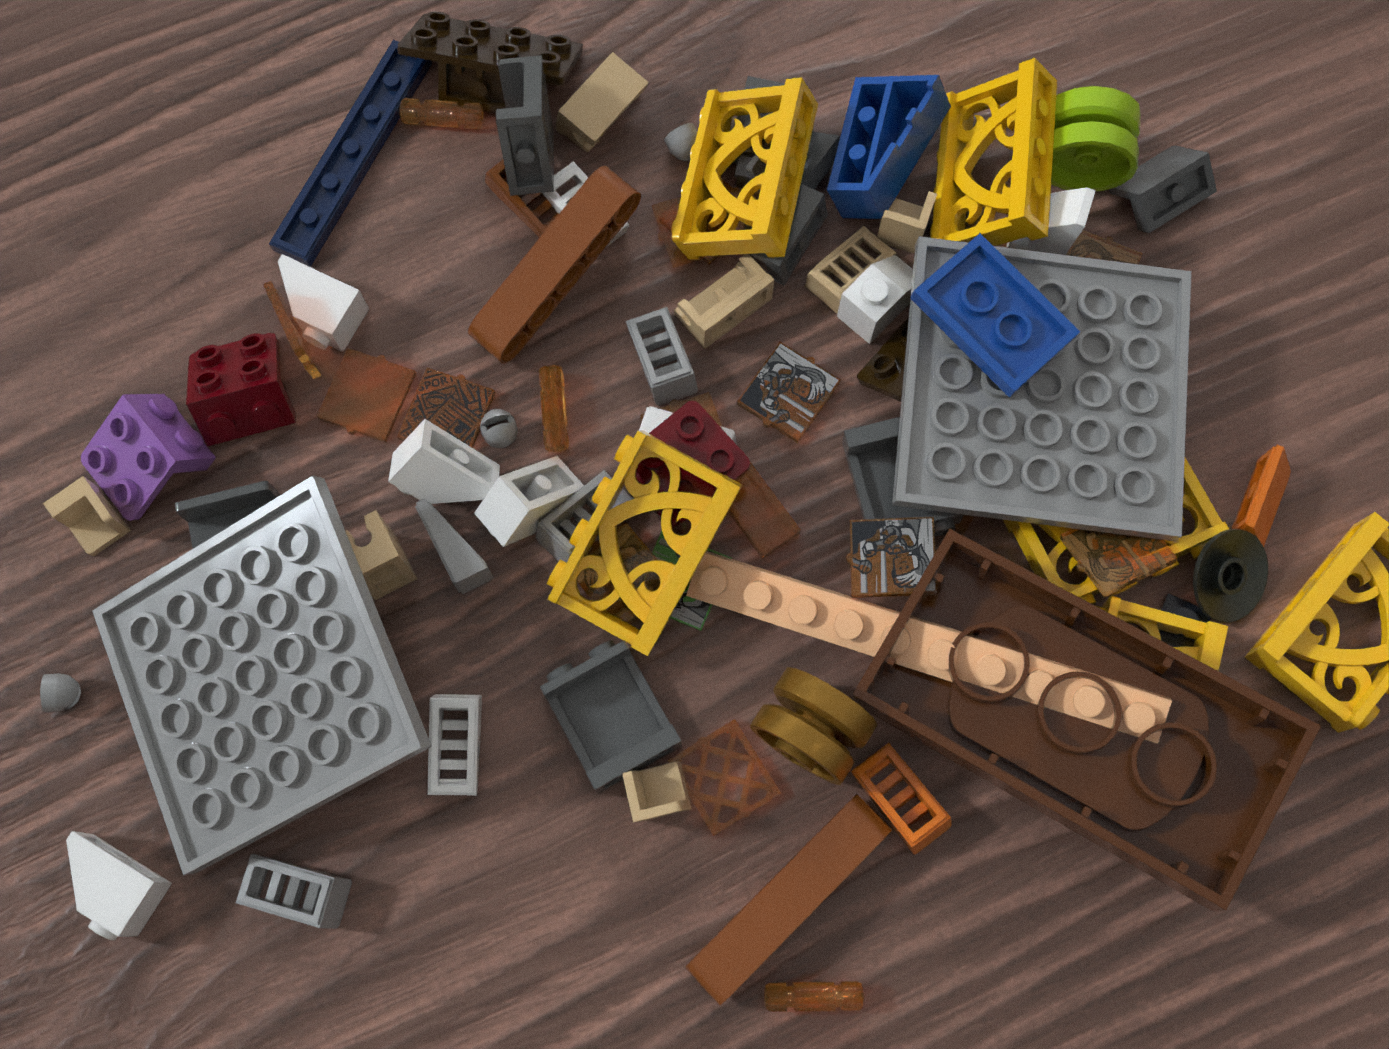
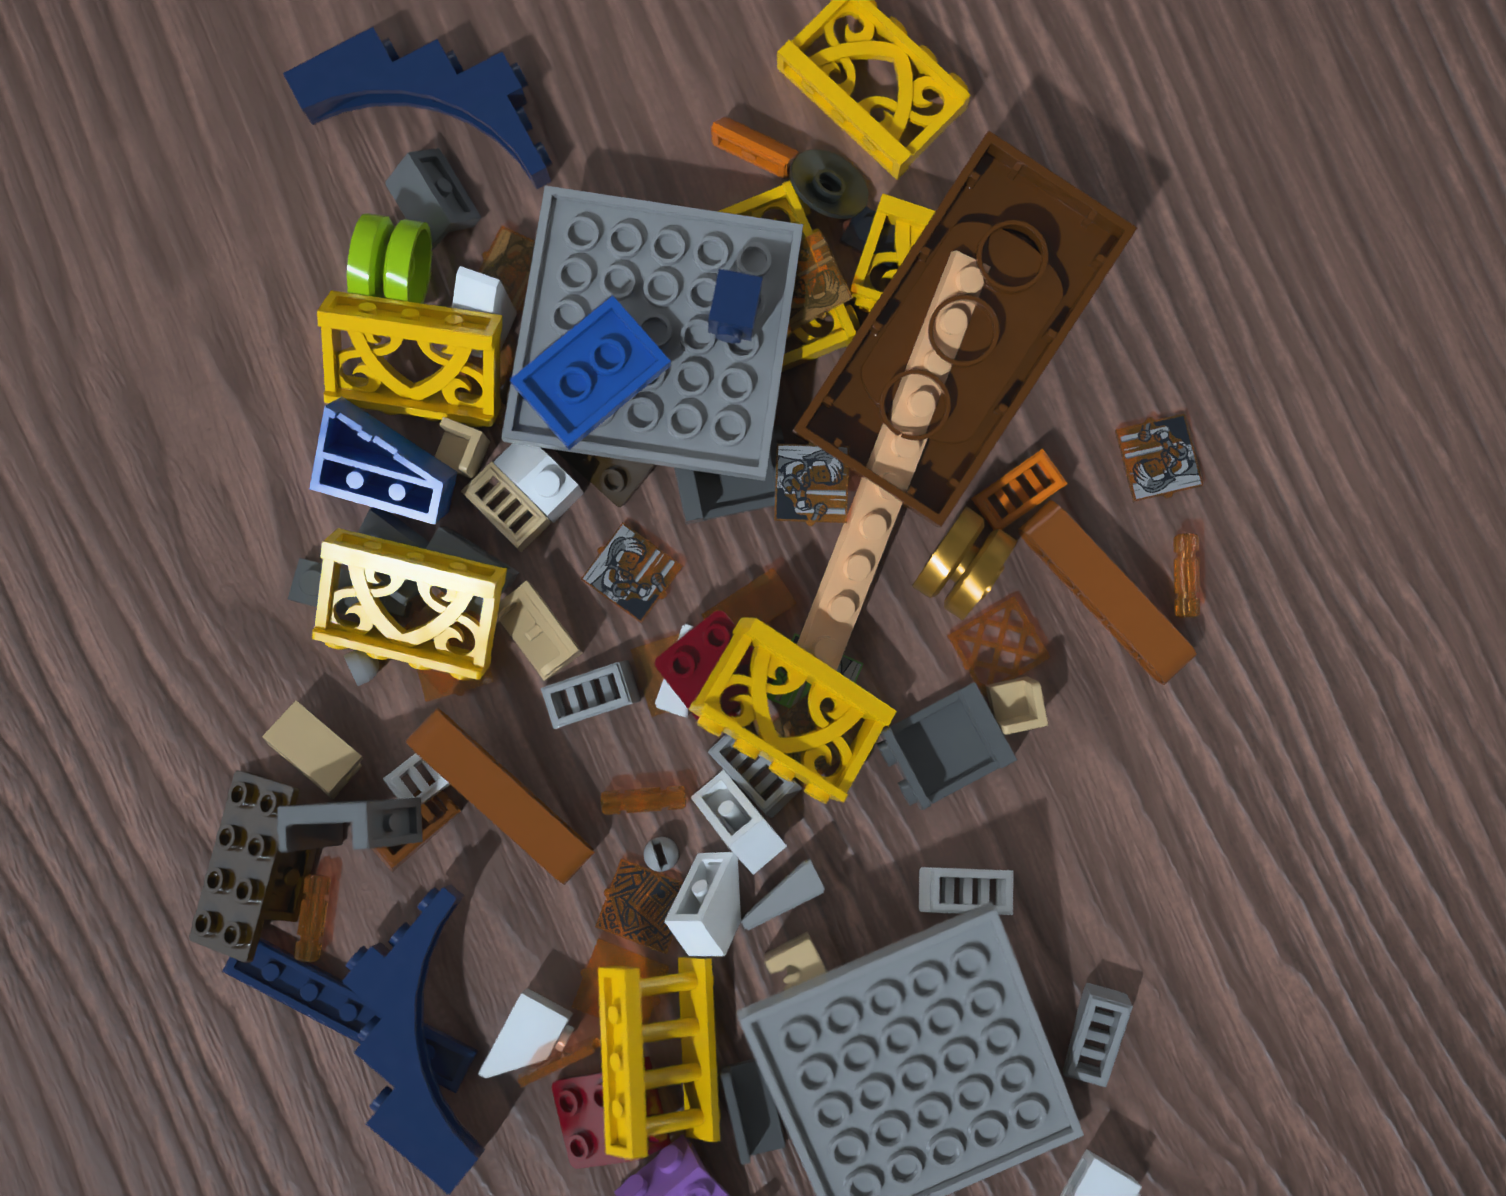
camera: 85 degrees left, 10 degrees up
(253, 199) = (415, 1113): none -> dark blue arch
(308, 379) = (623, 1055): none -> yellow fence
(951, 964) = (1159, 457): none -> piece
(1081, 458) = (734, 306): none -> dark blue brick
(1285, 124) = (371, 74): none -> dark blue arch

